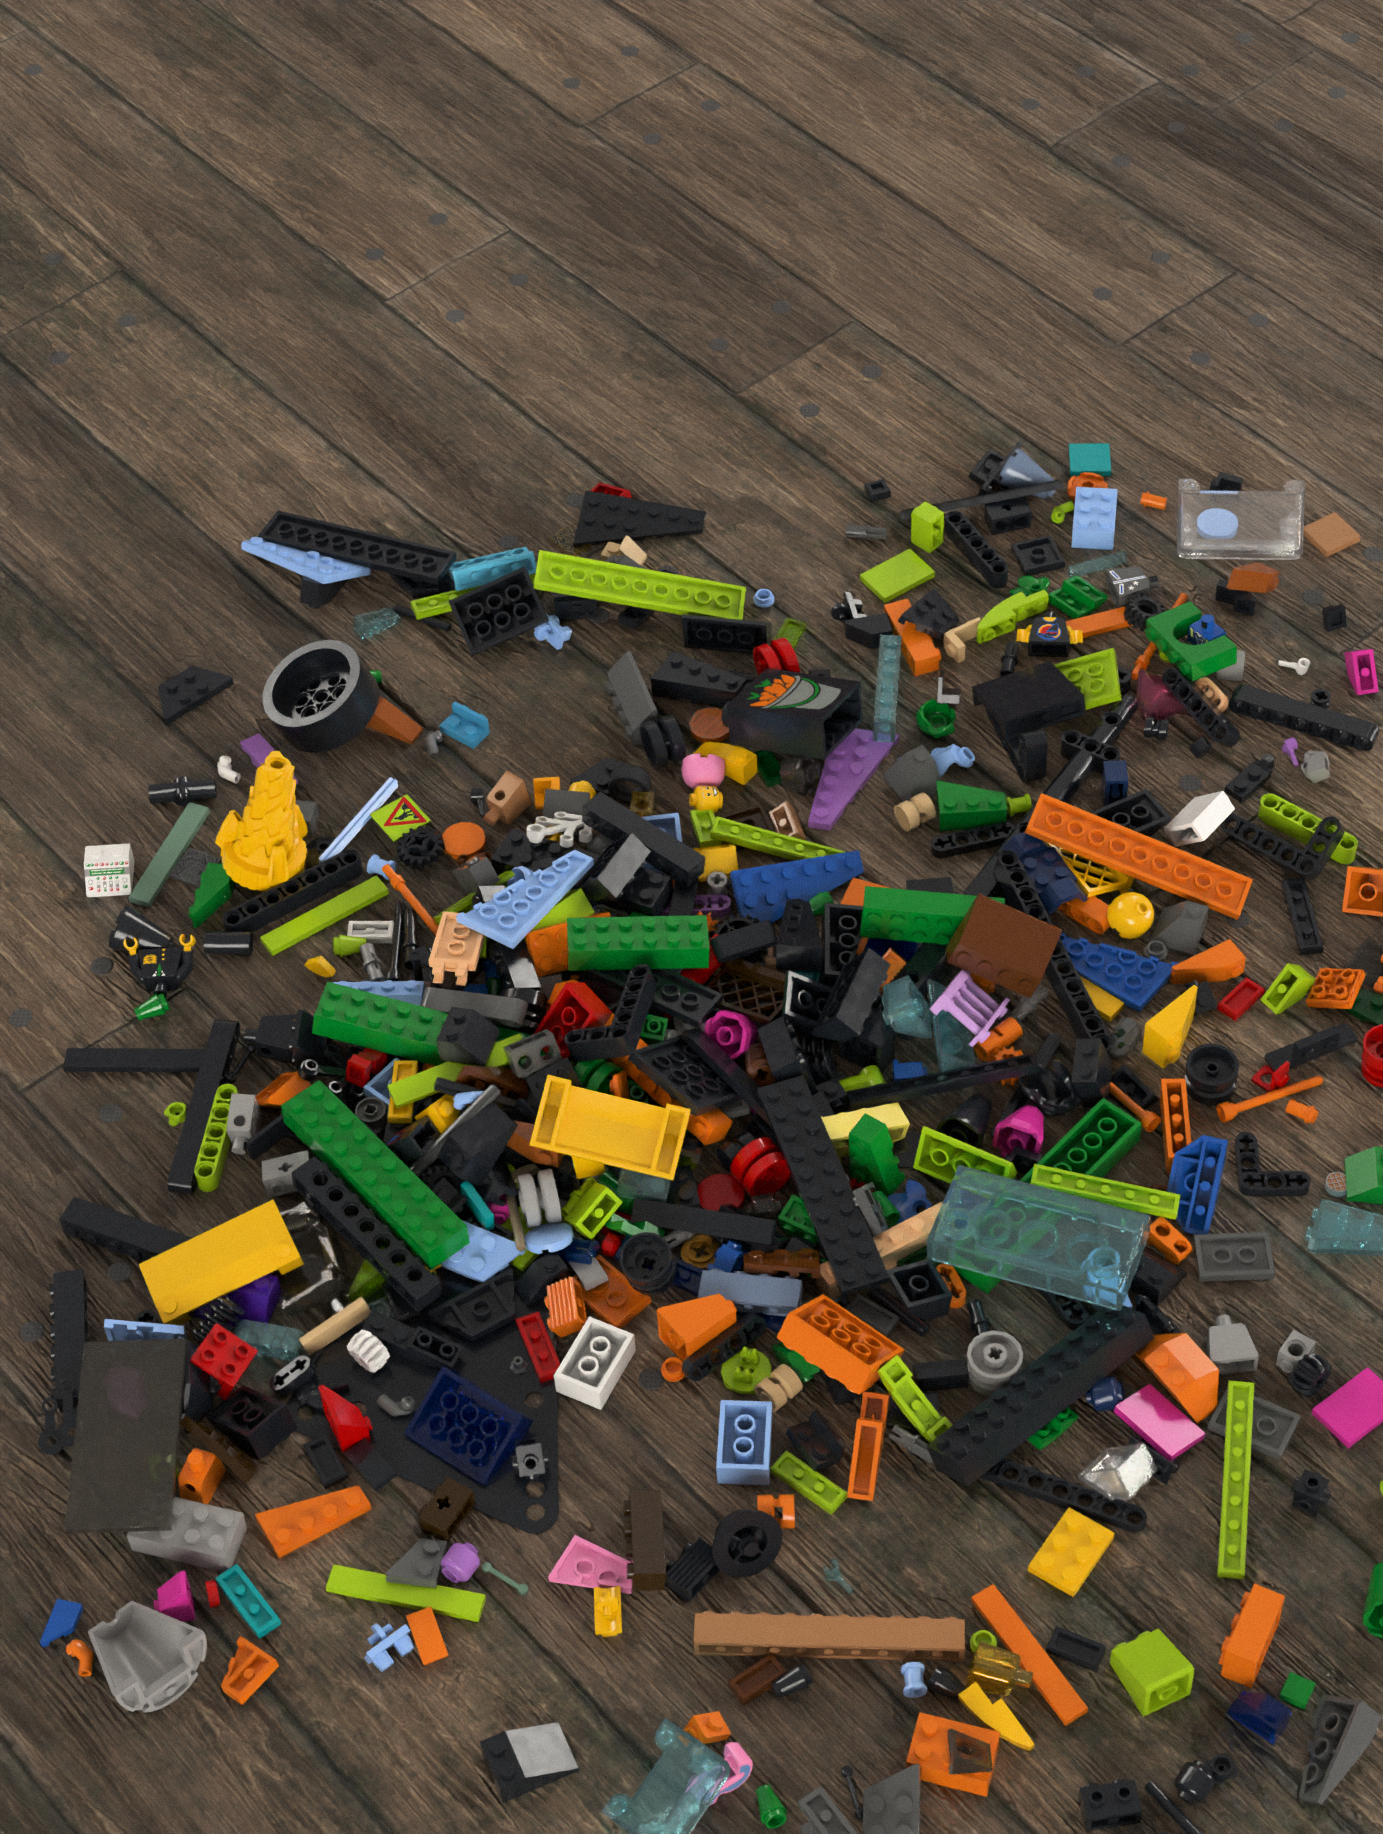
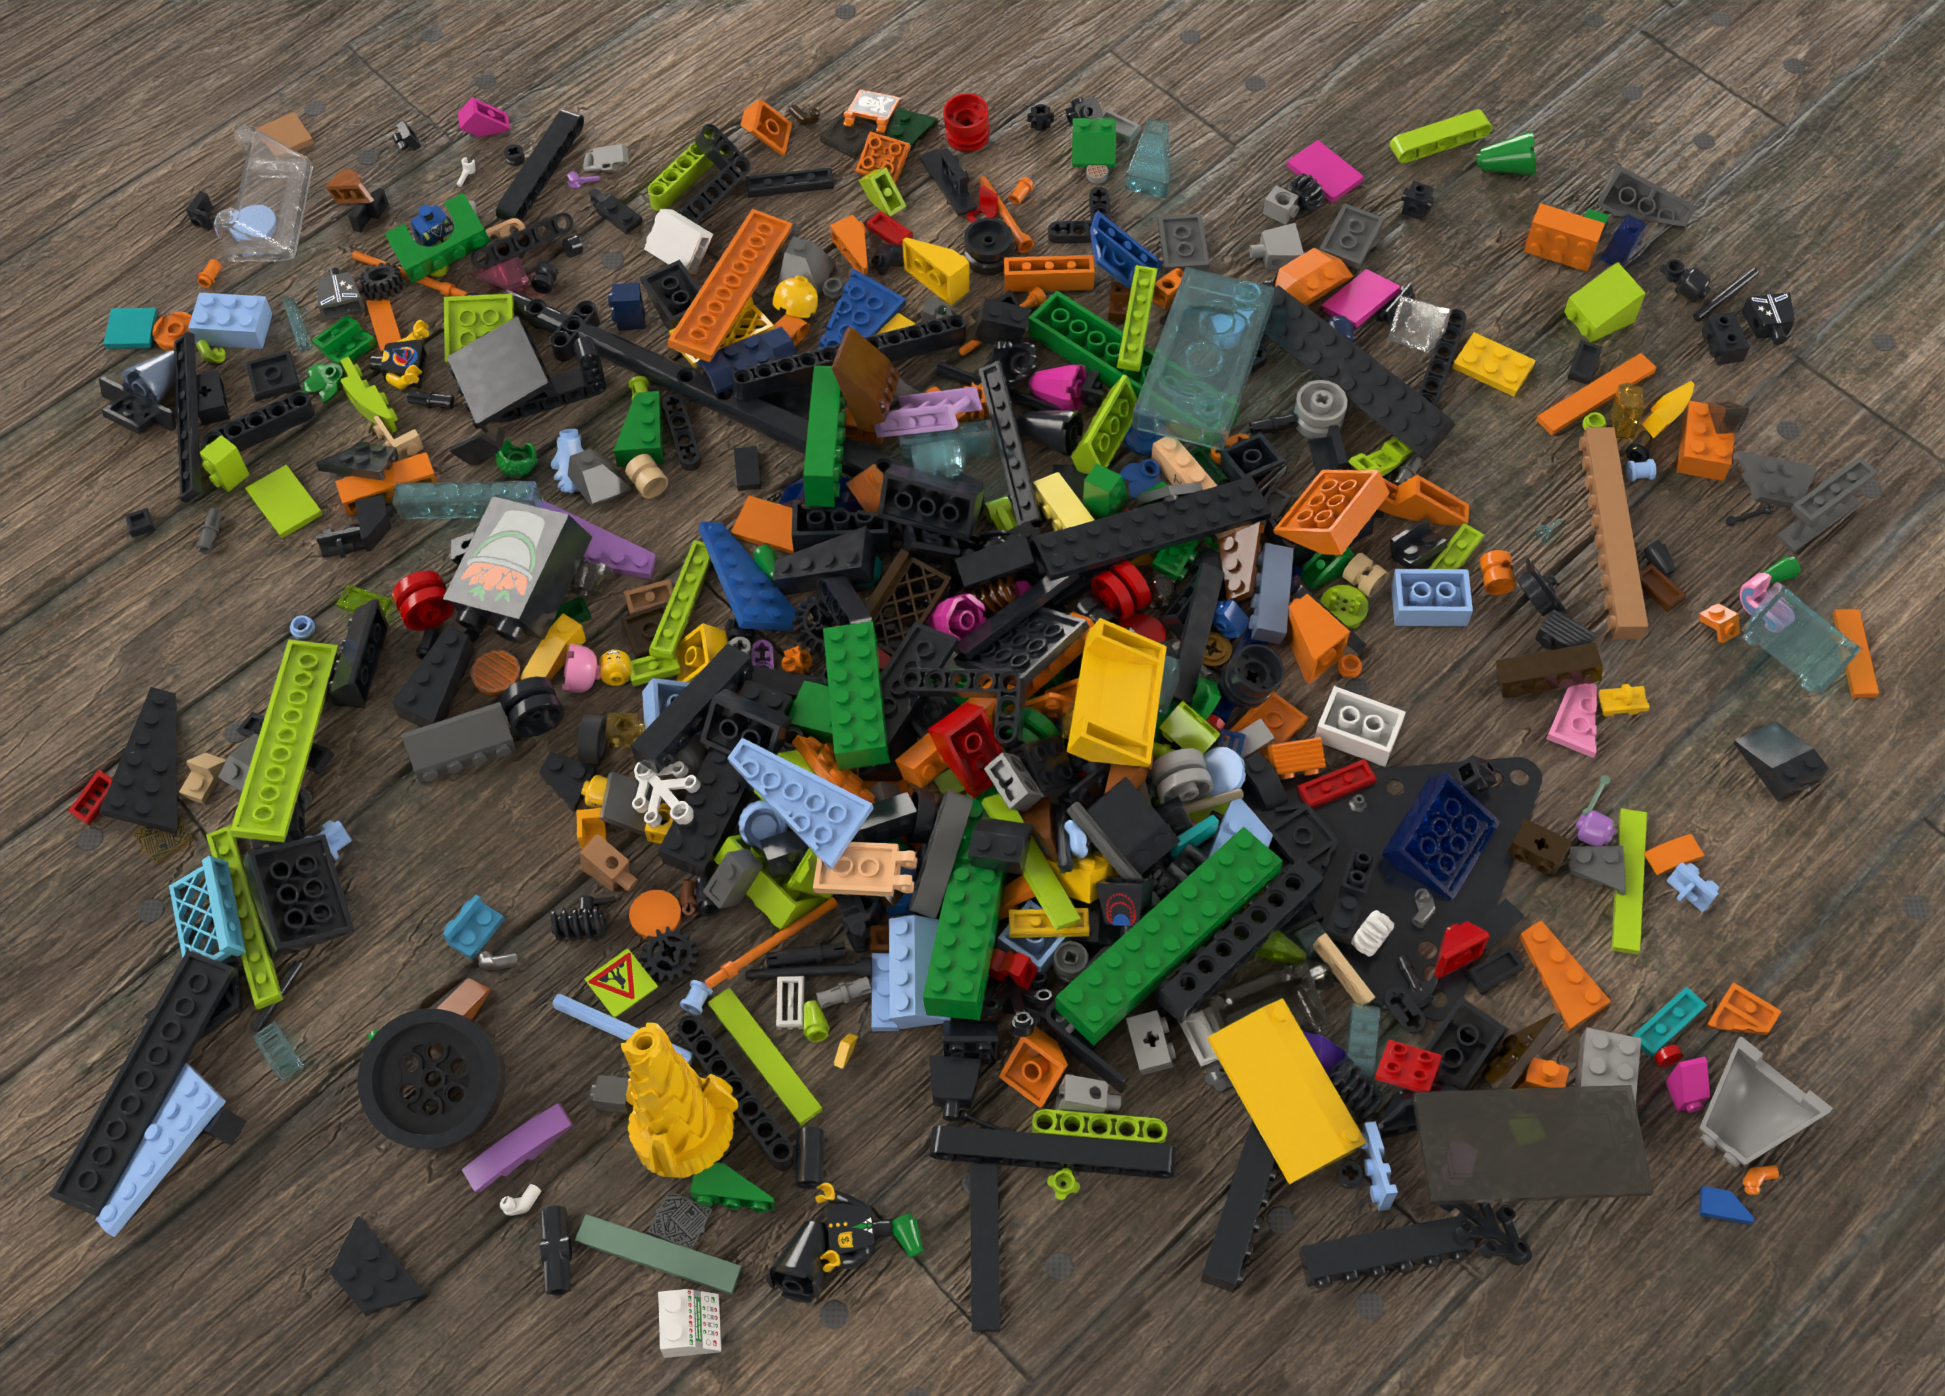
camera: 95 degrees left, 10 degrees up
(457, 788) = (579, 923): none -> black piece
(907, 1070) = (992, 480): blue brick -> none
(1236, 1480) = (1411, 247): lime tile -> none

